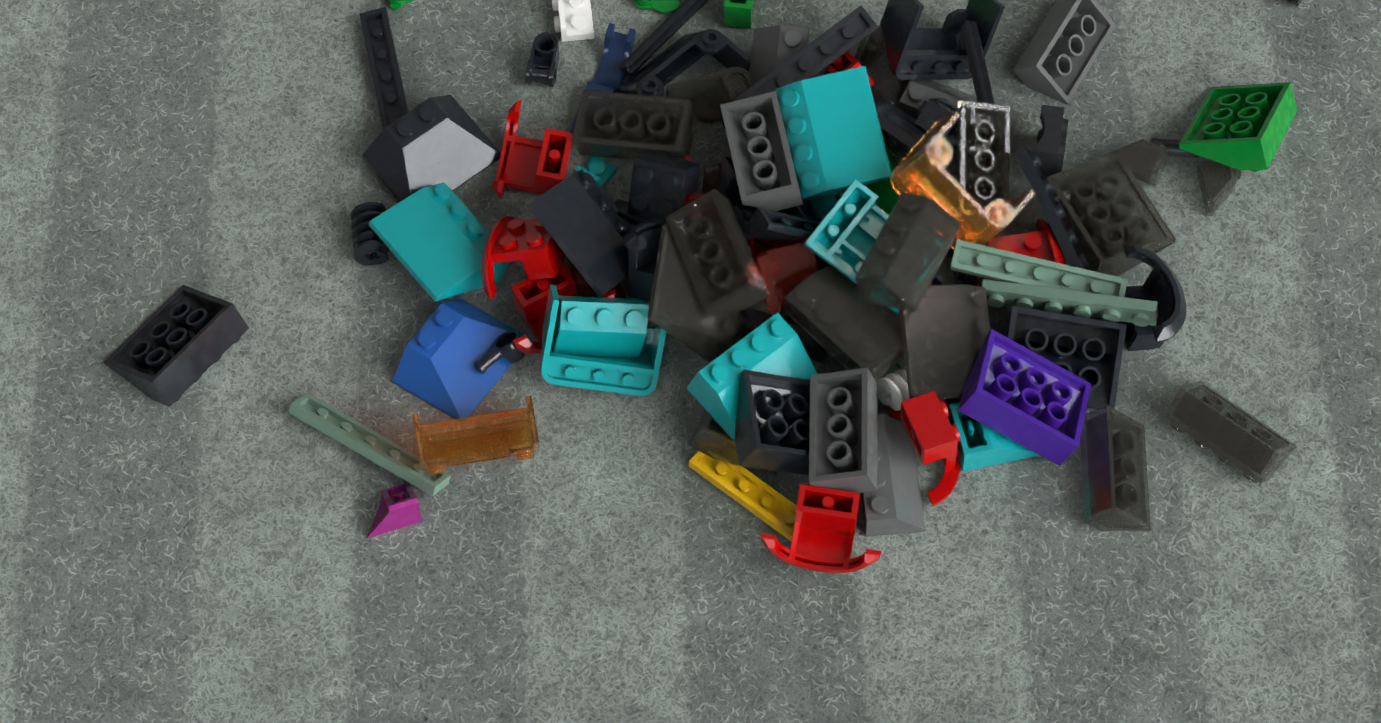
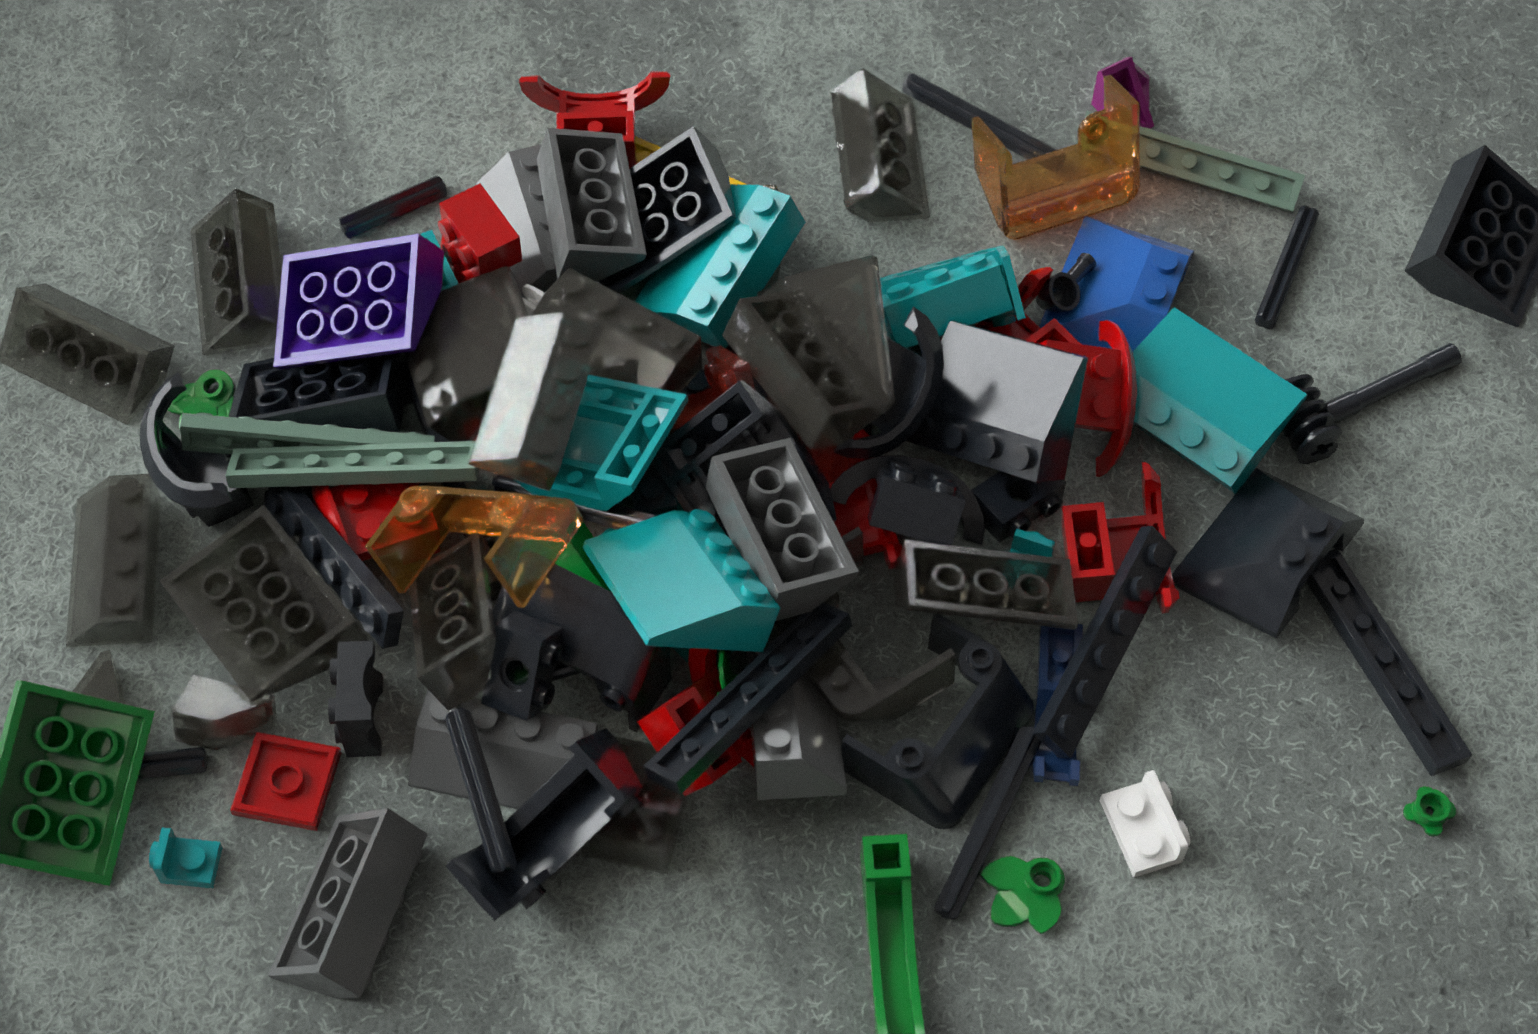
camera: 165 degrees right, 0 degrees up
(266, 262) = (1425, 367): none -> black piece
(329, 354) = (1286, 267): none -> black axle
(515, 514) = (963, 111): none -> black axle
(543, 64) = (1160, 722): black piece -> none
(561, 101) = (1105, 642): none -> black plate
(605, 493) = (878, 150): none -> clear smoke slope
(991, 518) = (393, 206): none -> black axle
(1098, 126) = (286, 781): none -> red tile
(1142, 380) = (198, 400): none -> green plate
(1163, 89) = (185, 860): none -> teal bracket
(1210, 272) = (114, 563): none -> clear smoke slope

